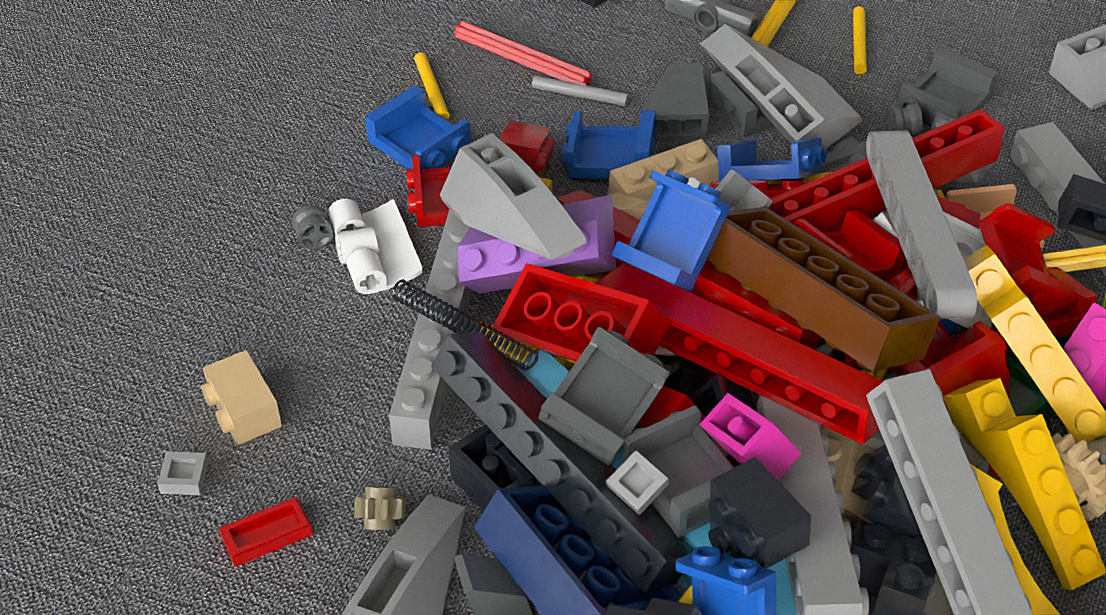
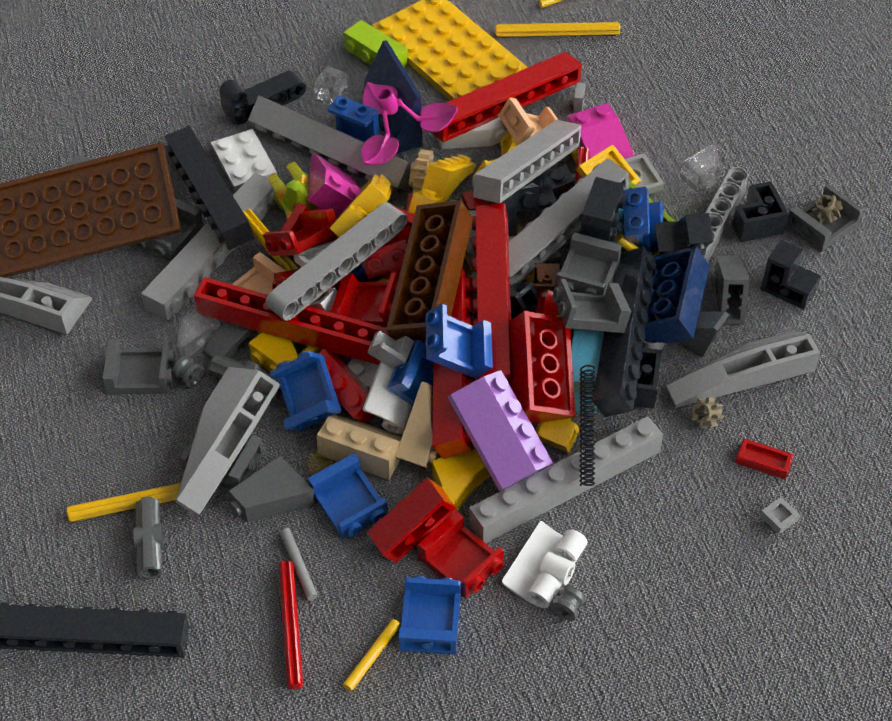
camera: 130 degrees left, 5 degrees up
(241, 397) = (713, 528): tan brick -> none
(506, 199) = (500, 443): light grey wedge -> none
(637, 482) = (619, 273): light grey plate -> none
(750, 435) = (558, 241): dark pink brick -> none
(859, 40) = (106, 445): yellow bar -> none

